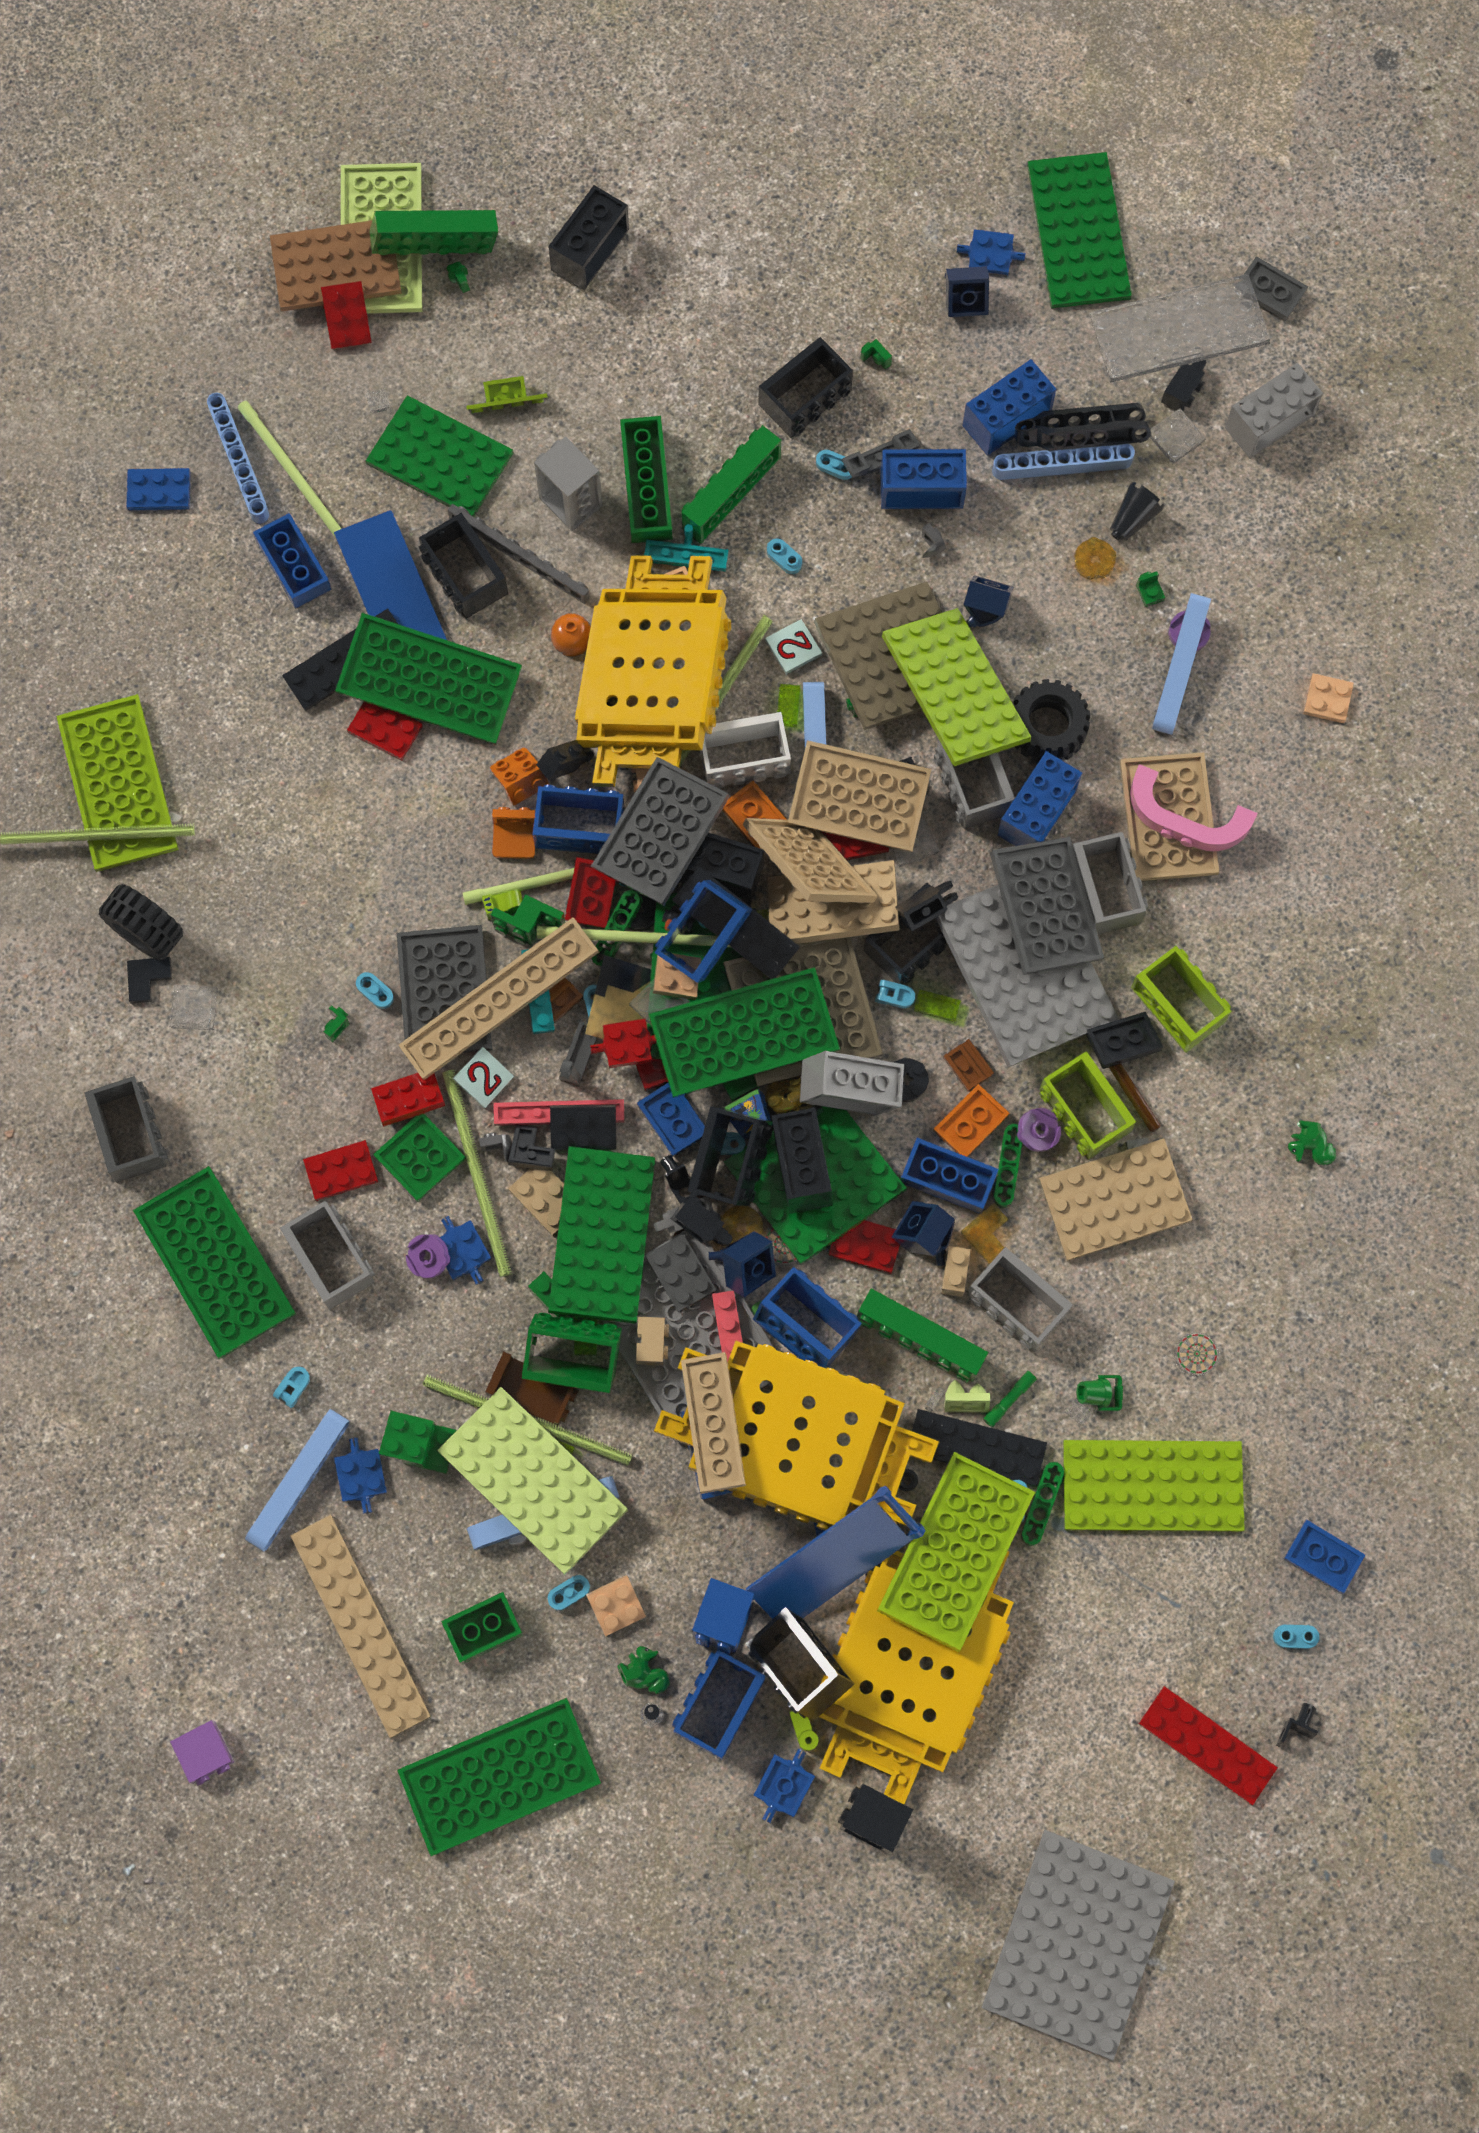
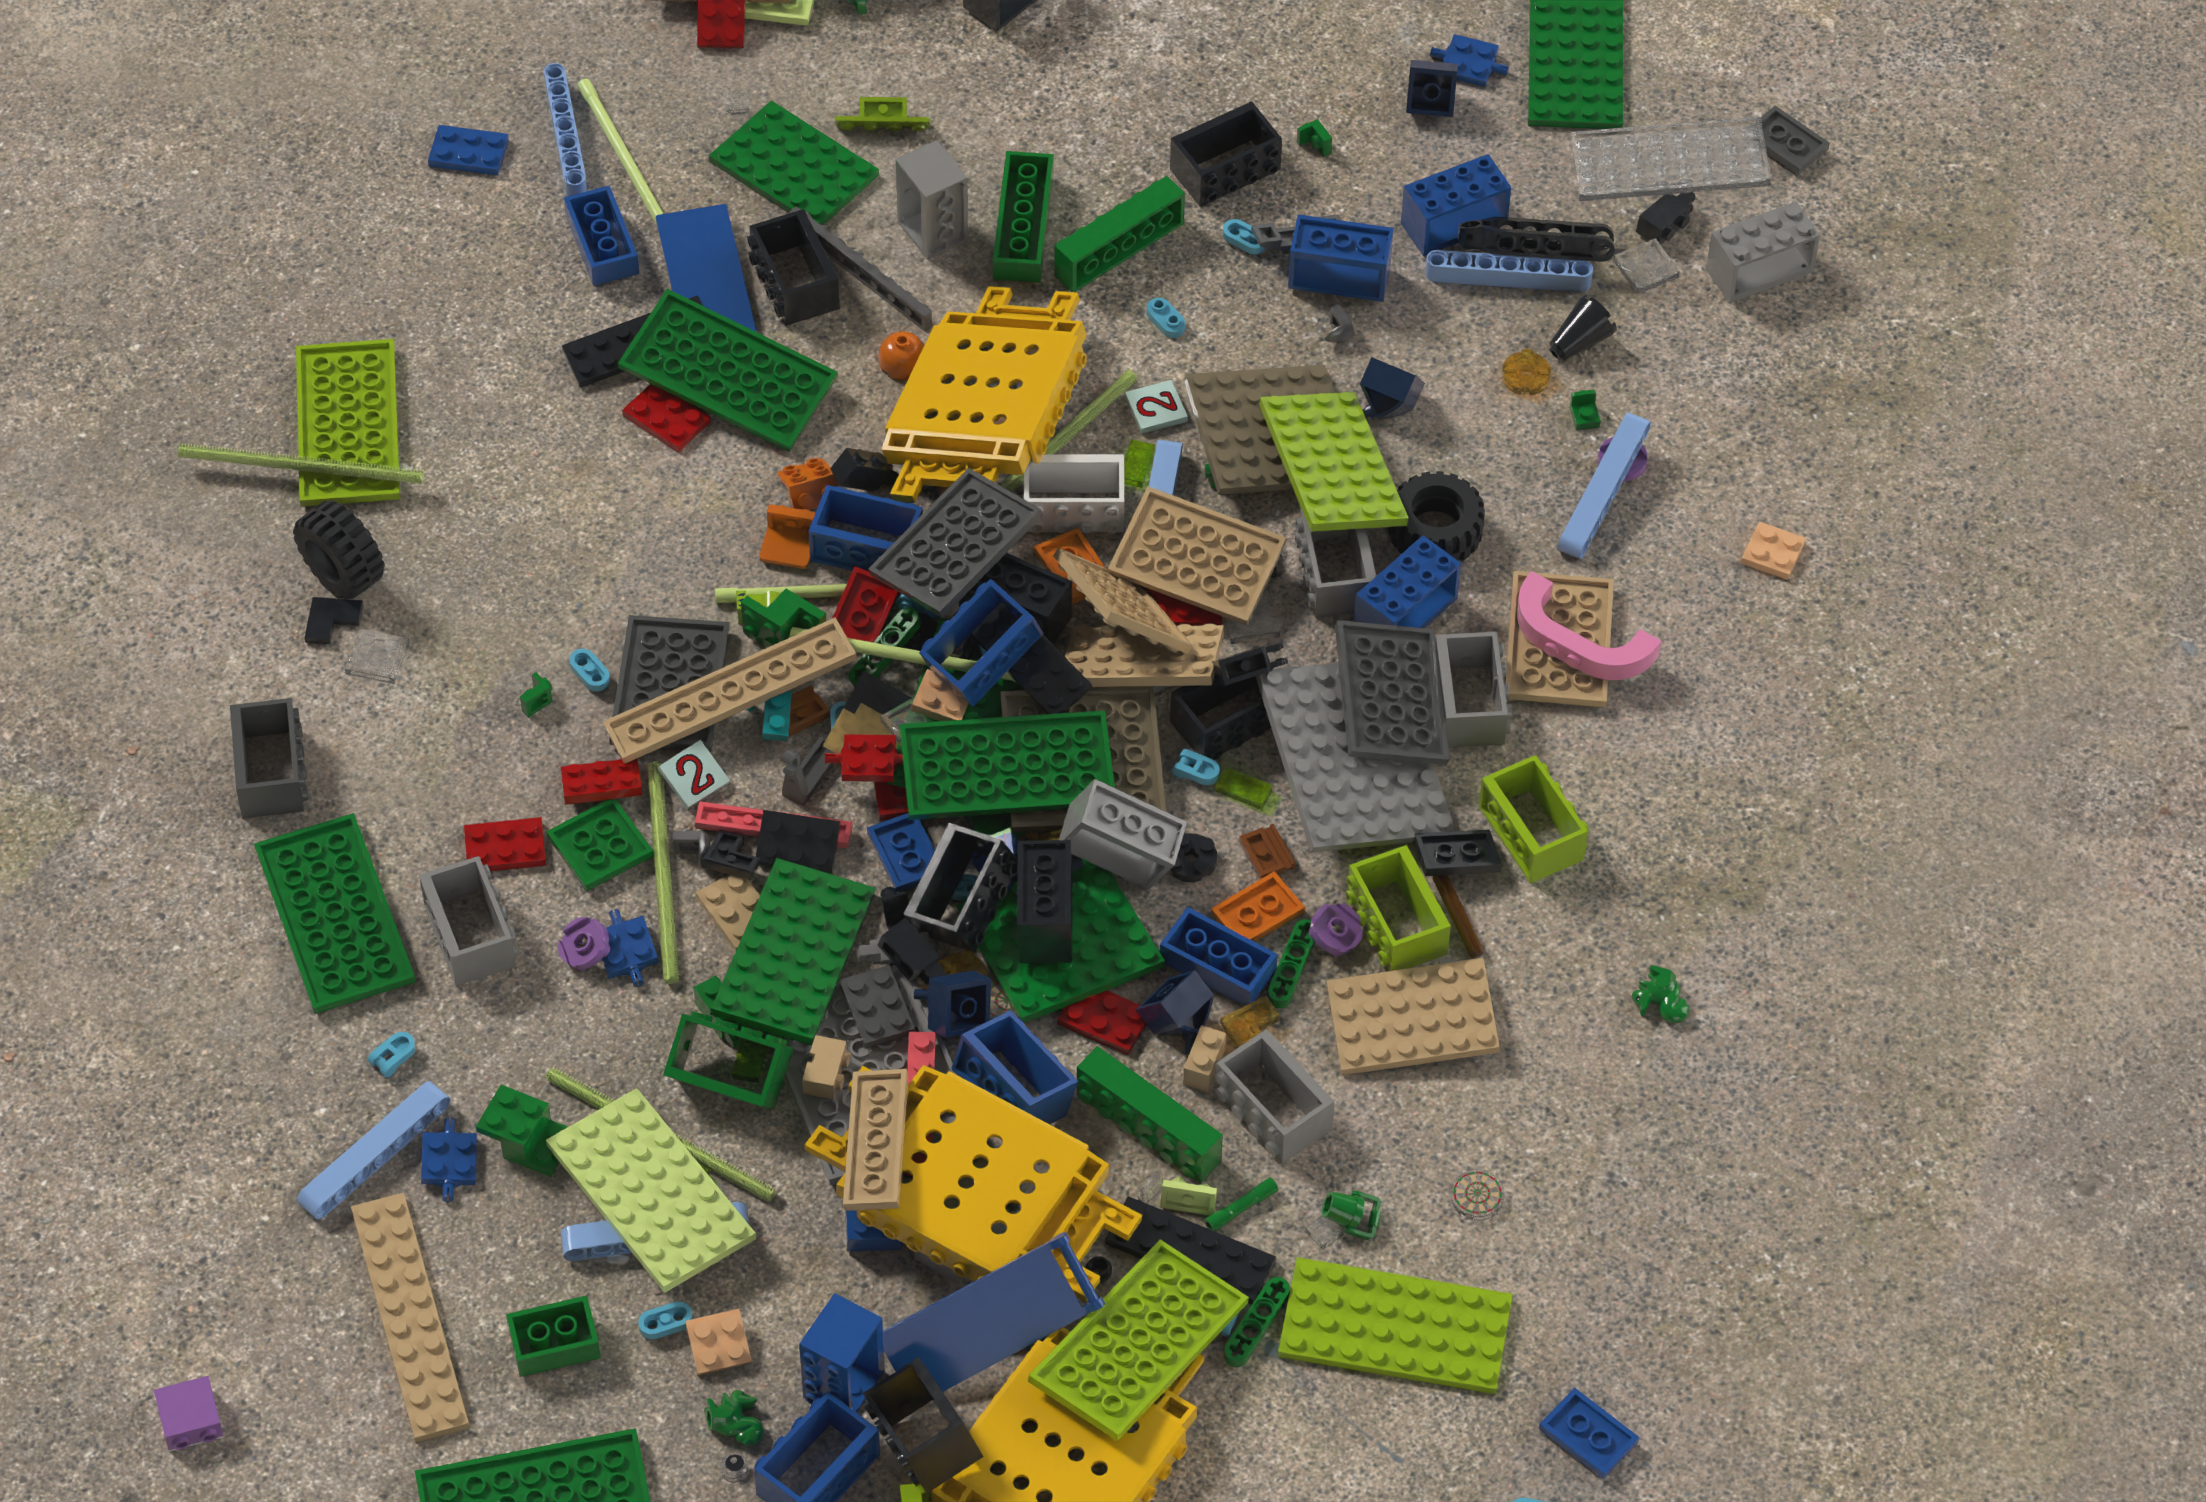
camera: 10 degrees right, 20 degrees down
(536, 1397) = (678, 1104): reddish brown panel -> none
(679, 554) = (1040, 295): teal plate -> none

